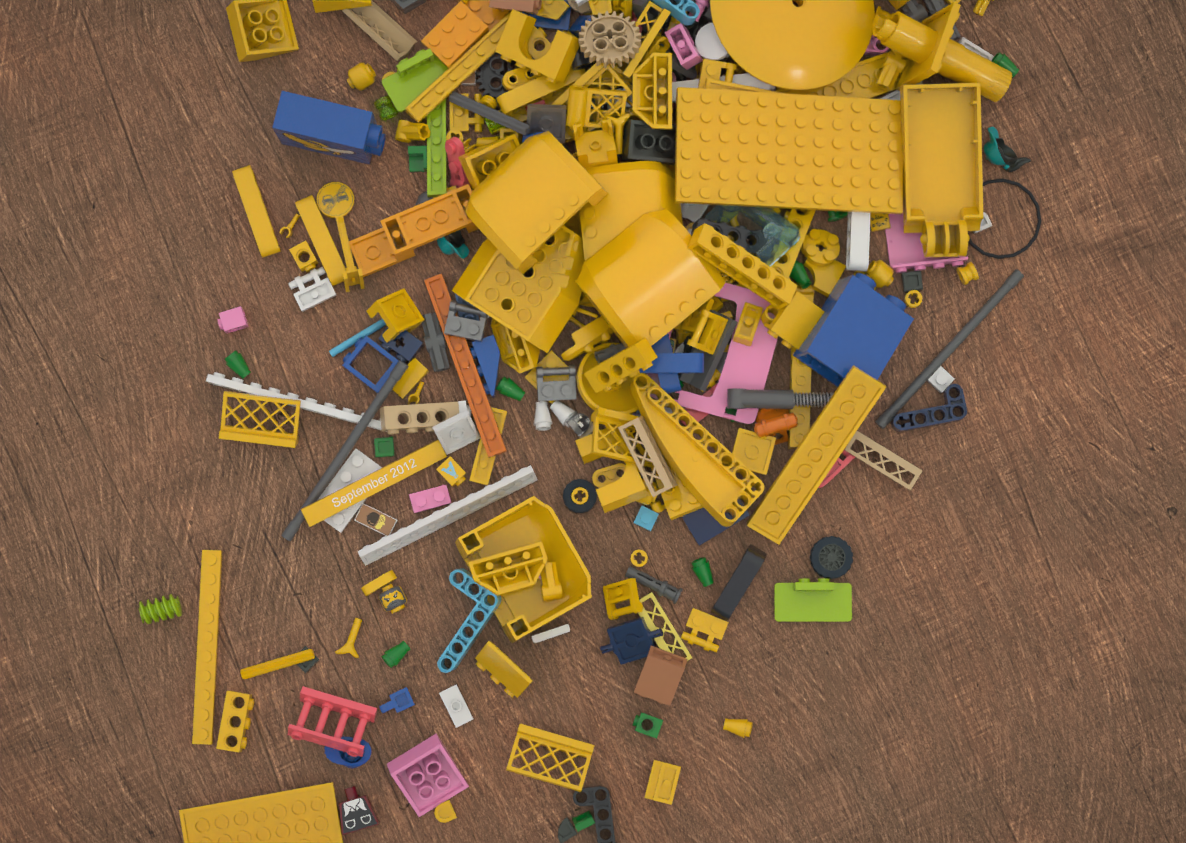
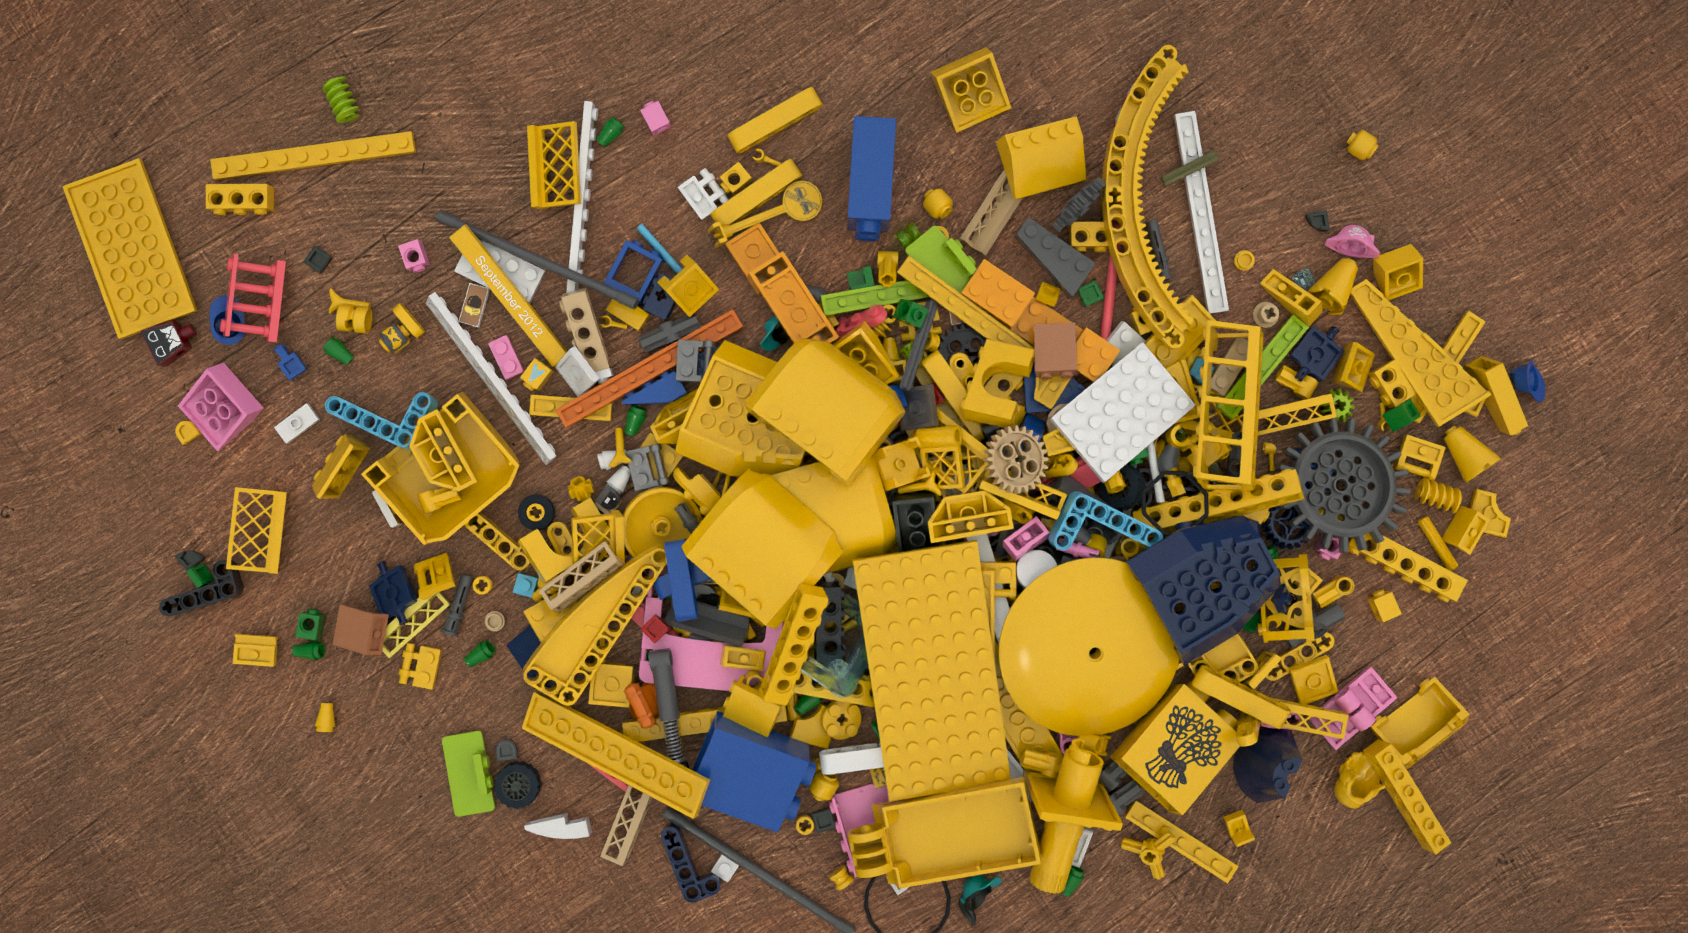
camera: 85 degrees right, 5 degrees up
(277, 664) = (306, 231): yellow axle -> none
(311, 566) = (410, 248): none -> bright pink brick
(368, 633) = (351, 318): none -> yellow wheel
(384, 447) = (550, 299): green tile -> none
(458, 116) = (910, 313): none -> green brick
(541, 406) = (620, 456): none -> yellow piece
(565, 449) = (580, 488): none -> yellow gear
(598, 533) = (496, 543): none -> yellow beam
(621, 365) = (667, 533): yellow brick -> none
(672, 729) = (312, 650): none -> green cone
(674, 552) = (494, 621): none -> tan plate
(707, 399) = (655, 628): none -> red plate
(711, 333) = (723, 618): yellow plate -> none
(739, 582) = (474, 695): black beam -> none
(797, 563) = (506, 750): none -> dark grey tile
(877, 524) = (560, 827): none -> white slope

